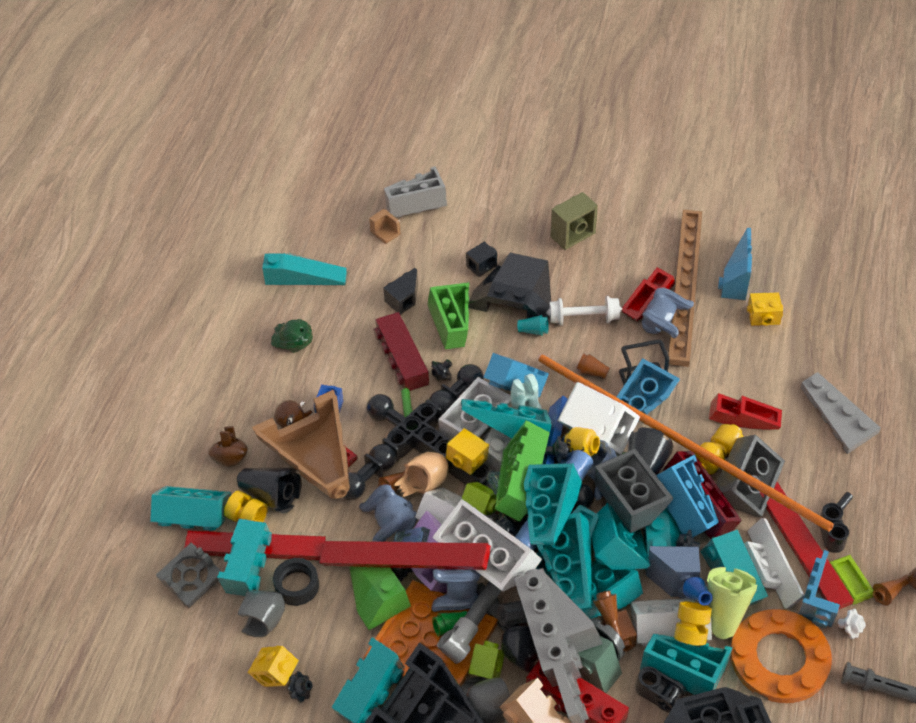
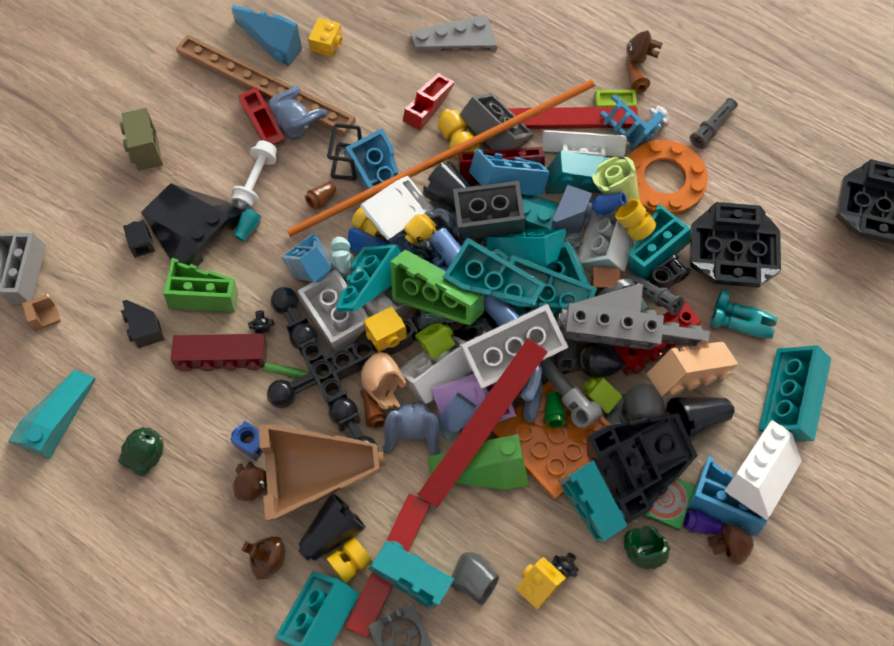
camera: 70 degrees left, 15 degrees up
(292, 566) = (451, 517): black tyre -> none
(607, 606) = (597, 276): dark orange cone -> none
(620, 680) = (660, 296): none -> dark grey pin
(649, 585) = (574, 239): none -> clear light blue tile
(686, 540) = (551, 195): black plant -> none
(839, 529) = (559, 84): black beam -> none

